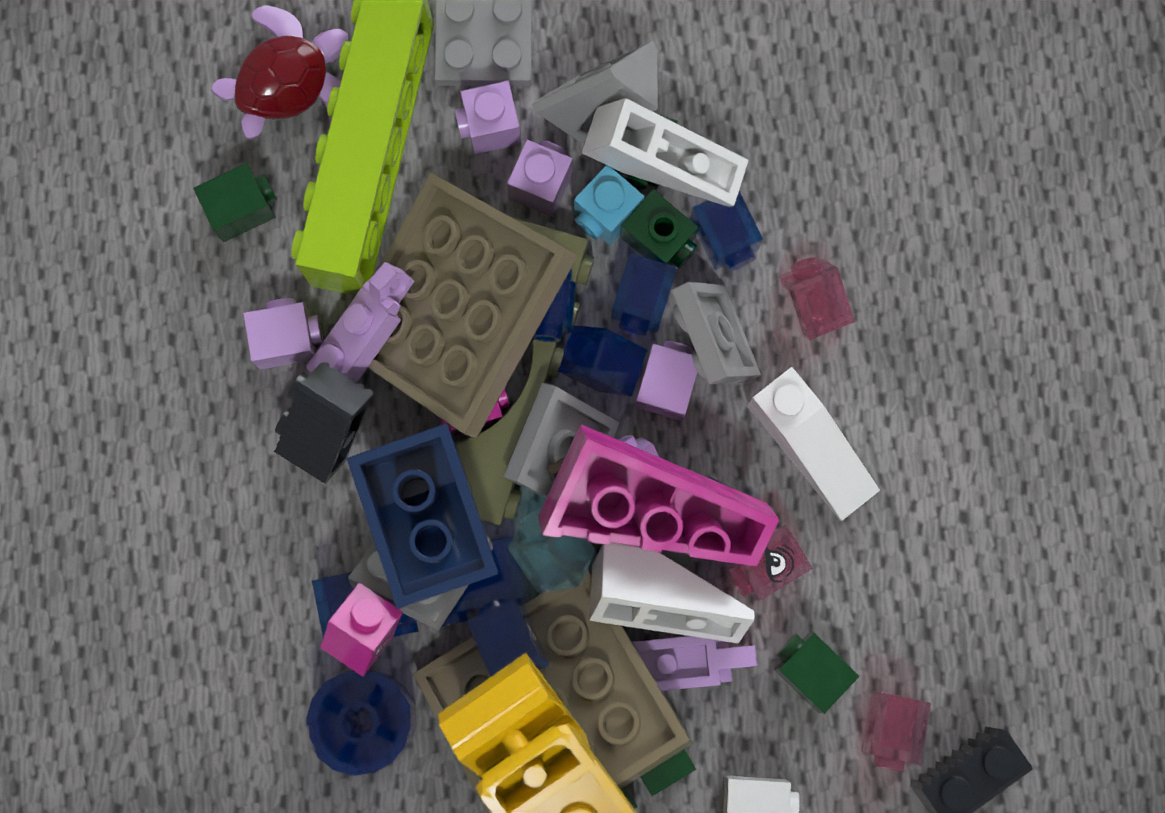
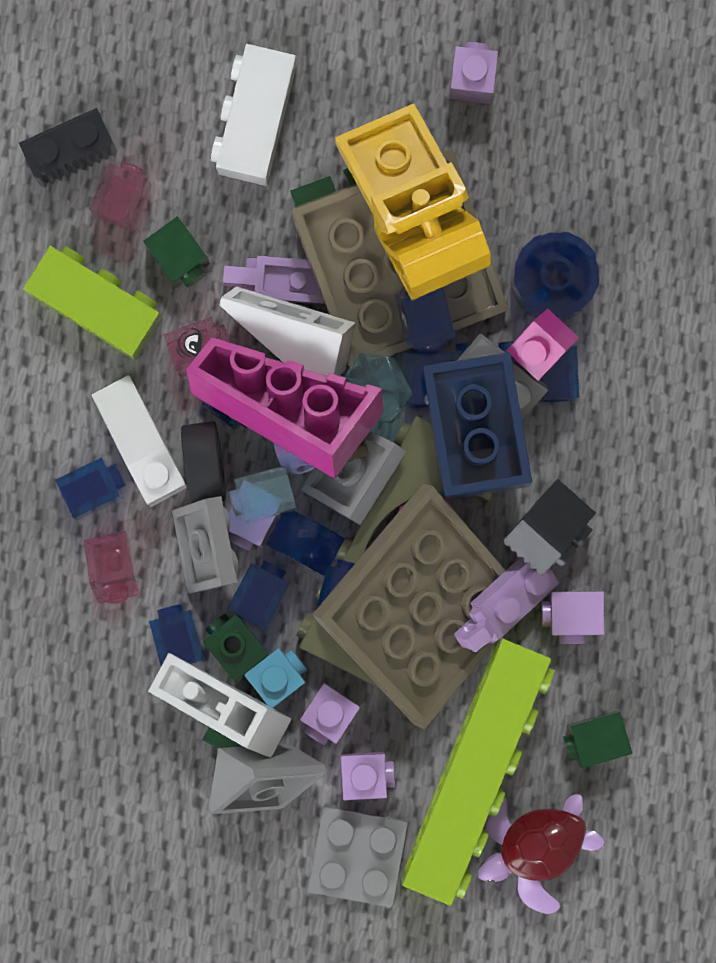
camera: 170 degrees left, 5 degrees up
(660, 396) = (263, 495): none -> clear light blue brick
(736, 428) = (203, 461): none -> black tyre
(858, 380) = (91, 488): none -> clear blue brick
(901, 597) = (94, 301): none -> lime brick

